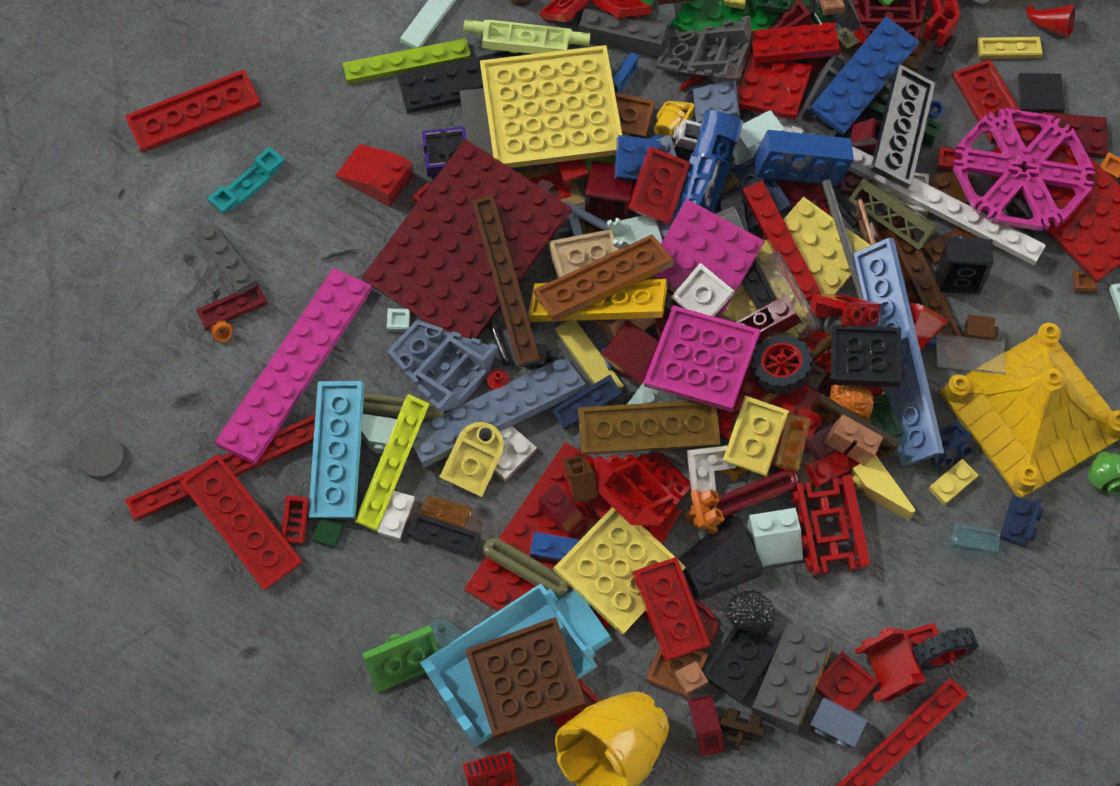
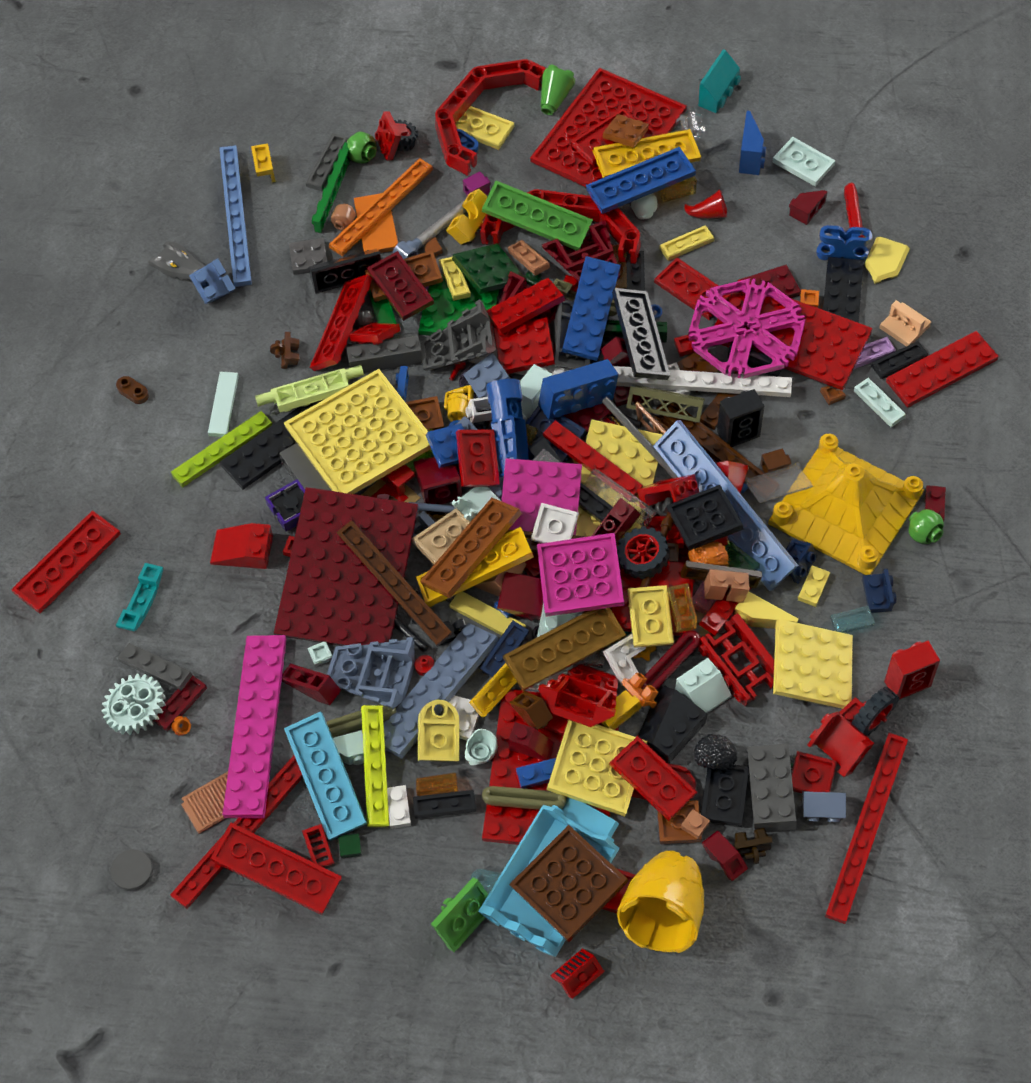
camera: 20 degrees left, 5 degrees down
(176, 299) = (133, 704): none -> light aqua gear
(205, 423) = (206, 803): none -> nougat window
(372, 347) = (311, 683): none -> dark red slope
(510, 493) = (481, 747): none -> light aqua hair
(551, 440) = (493, 691): none -> yellow plate
(678, 521) = (625, 708): none -> yellow panel
(906, 566) = (813, 664): none -> light yellow plate
(1008, 622) = (912, 669): none -> red brick
(1041, 92) = (728, 266): black tile -> none

